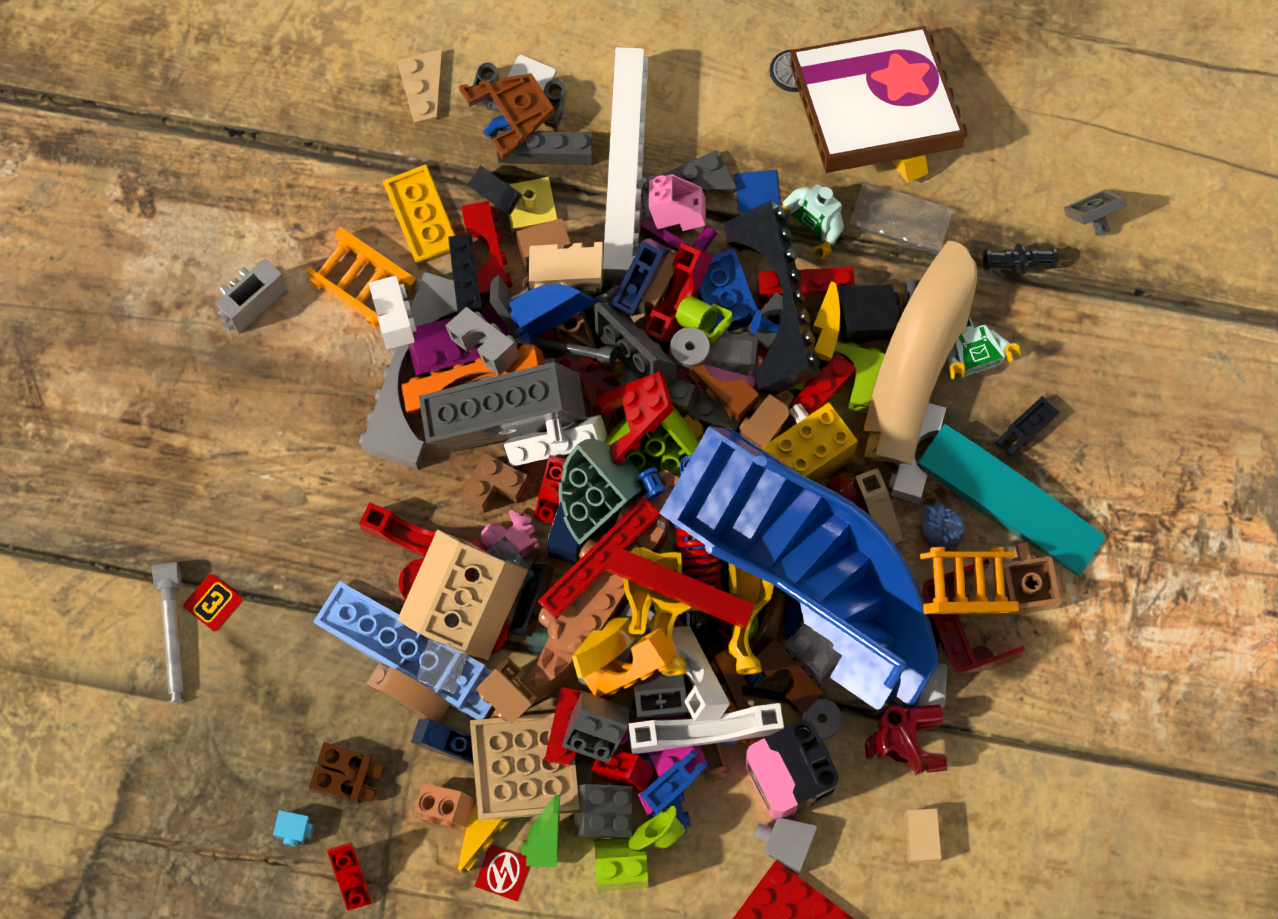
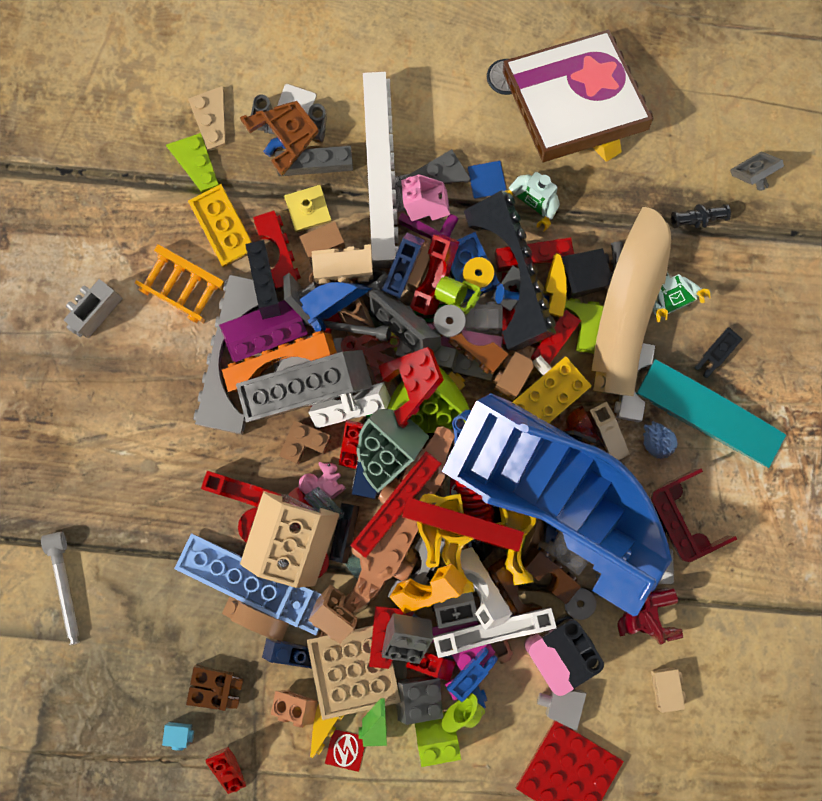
camera: 10 degrees left, 10 degrees up
(212, 602) = (93, 559): sticker -> none
(395, 325) = (211, 325): white arch -> none
(397, 134) = (195, 160): none -> lime wing
(442, 666) = (279, 599): clear piece -> none
(472, 329) = (271, 323): light grey arch -> none
(495, 190) = (278, 201): black beam -> none
(603, 646) = (405, 576): yellow slope -> none
(652, 483) = (431, 439): blue bush -> none
(736, 287) = (484, 266): none -> yellow piece
(901, 218) = (603, 191): clear plate -> none
(960, 603) = (700, 507): light orange fence -> none
(1038, 573) = (728, 470): medium nougat hinge -> none

